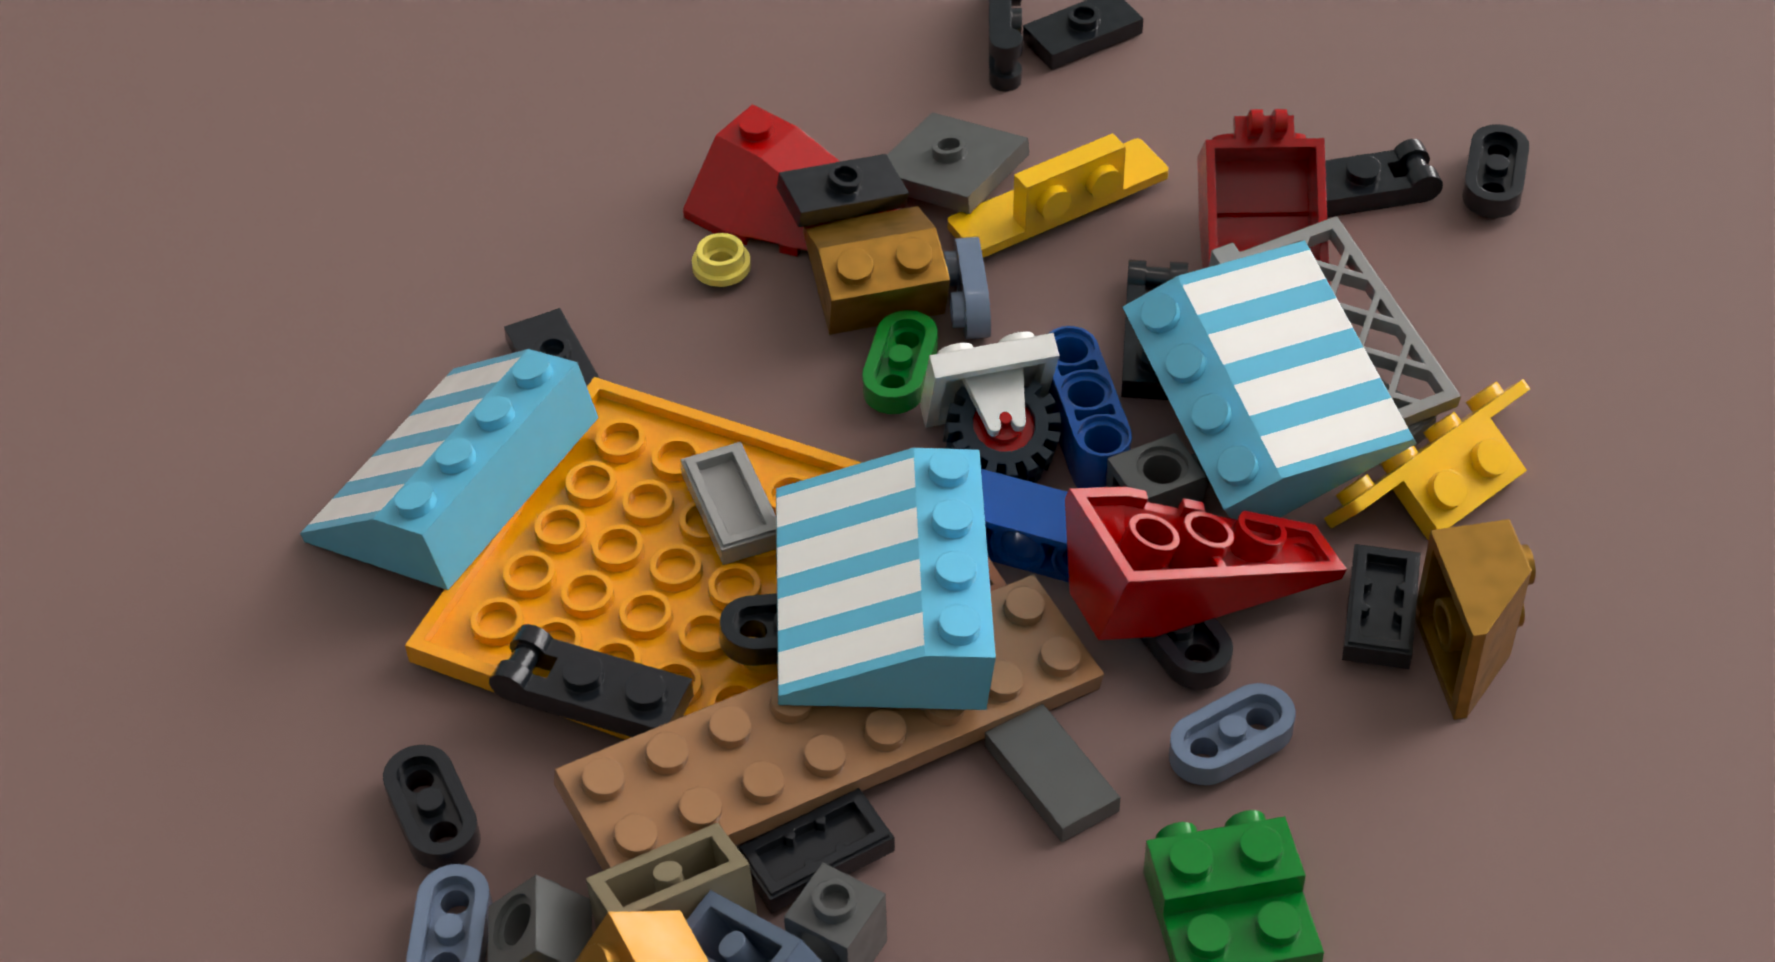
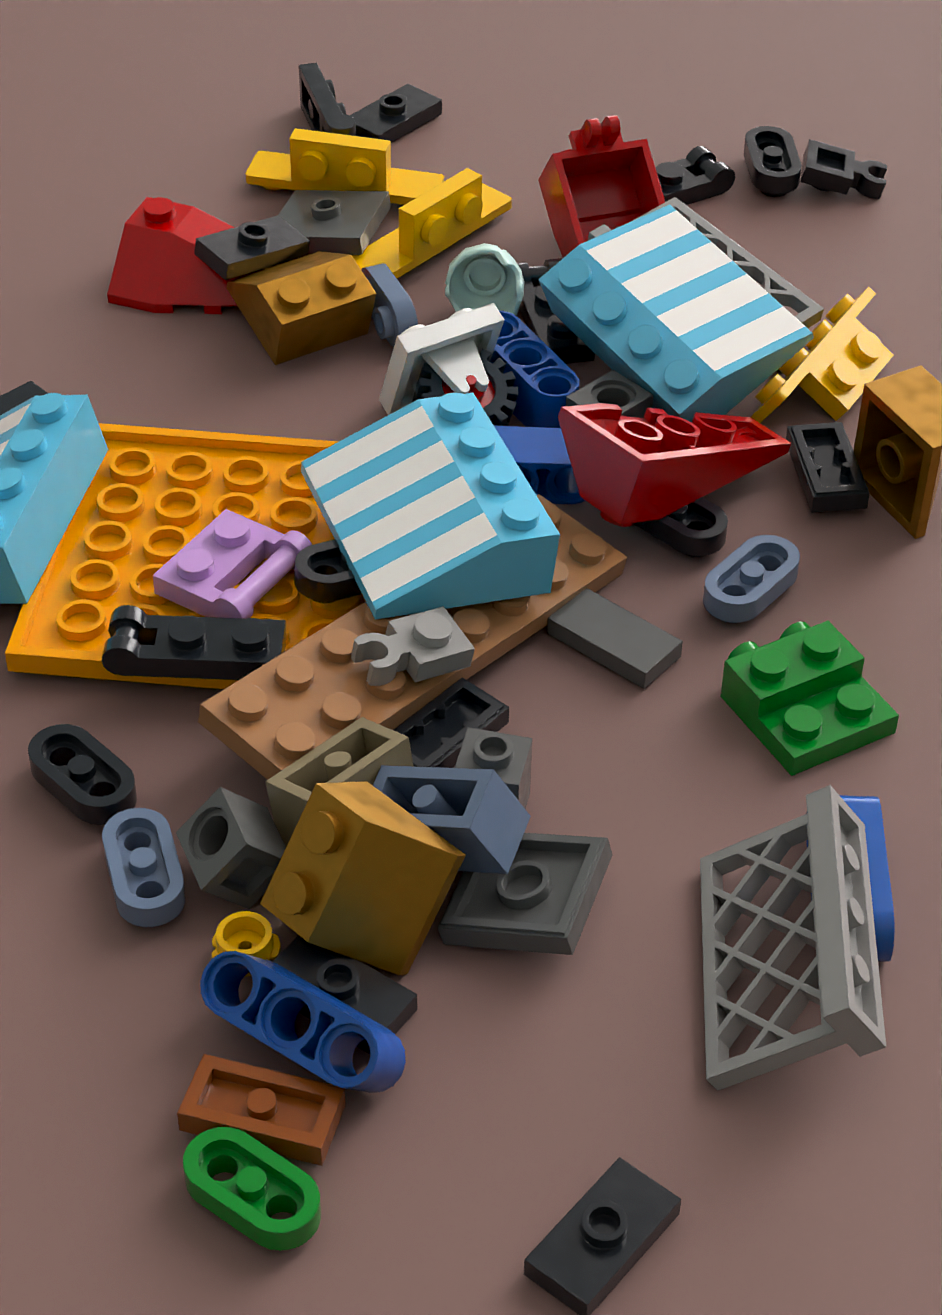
camera: 20 degrees left, 5 degrees down
(655, 586) = (219, 558): none -> lavender plate
(721, 260) = (160, 323): light yellow plate -> none
(731, 502) = (257, 487): light grey tile -> none
(811, 748) = (420, 643): none -> light grey plate
(899, 361) = (351, 369): green plate -> none
(992, 98) = (338, 163): none -> yellow bracket
(1084, 286) = (485, 277): none -> light aqua hair
(1567, 197) = (837, 170): none -> black plate

